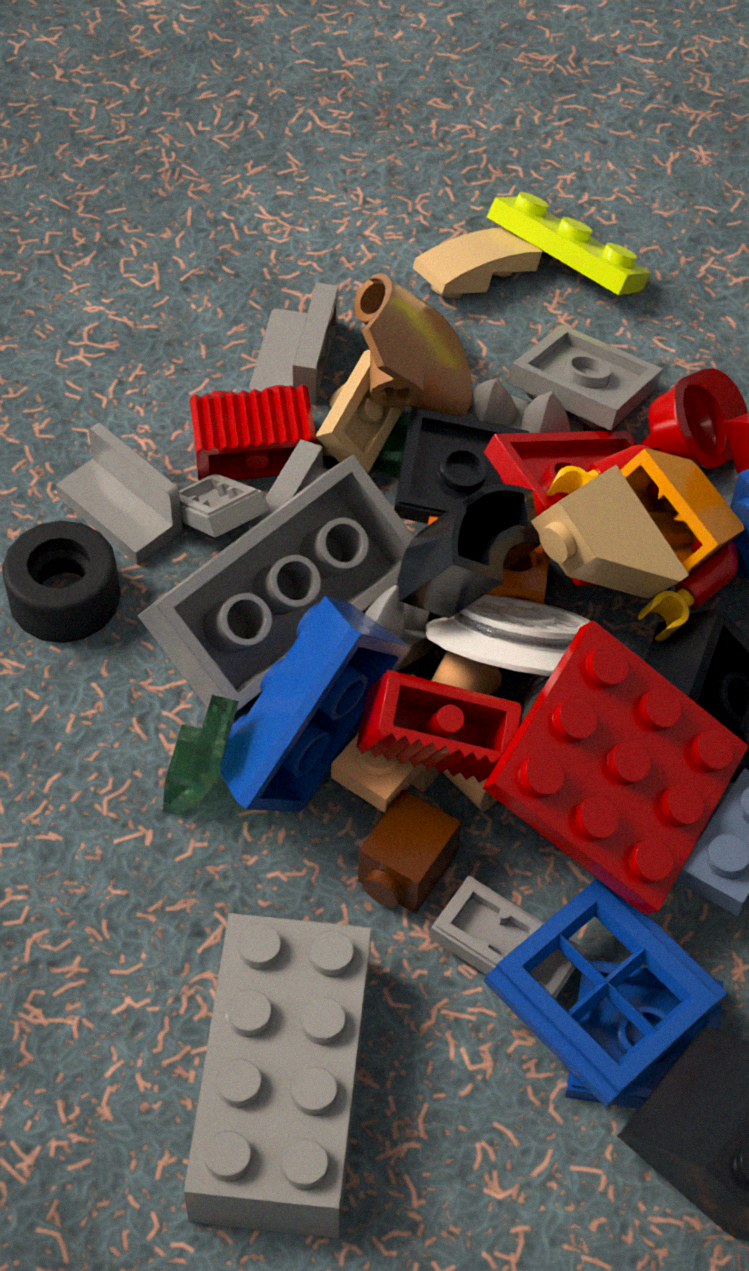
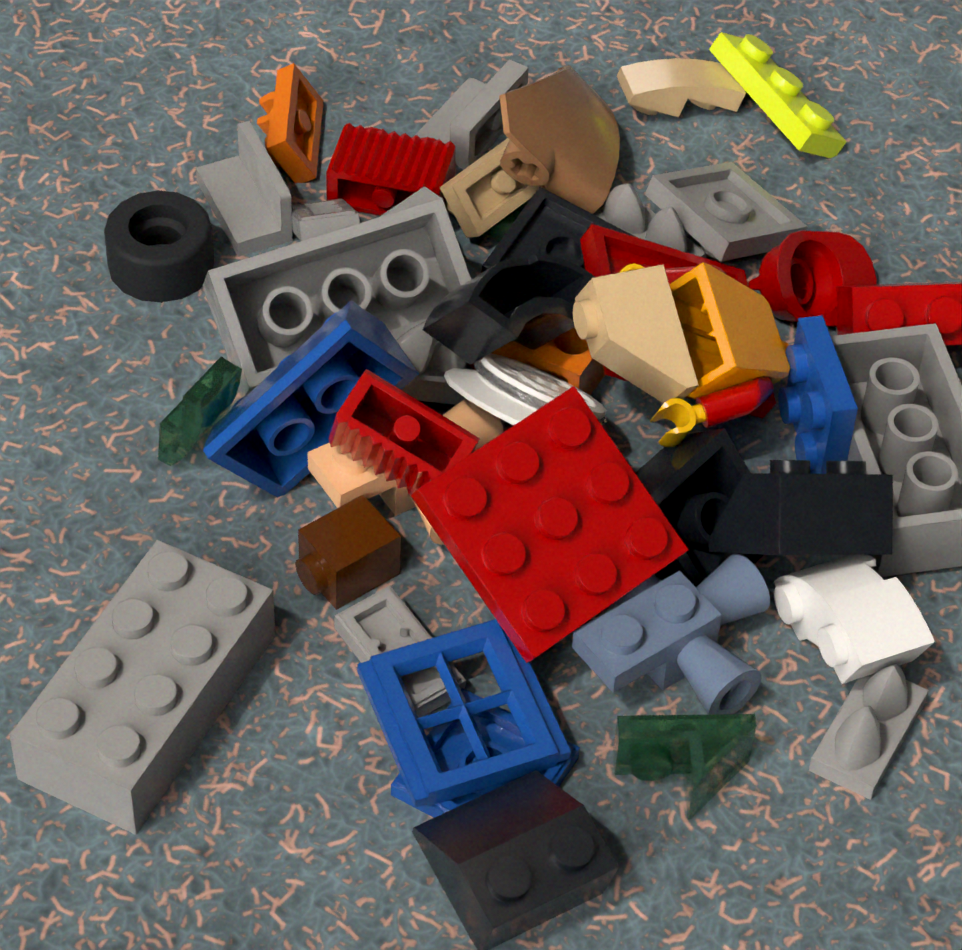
camera: 20 degrees right, 5 degrees down
(131, 407) = (293, 124): none -> orange plate

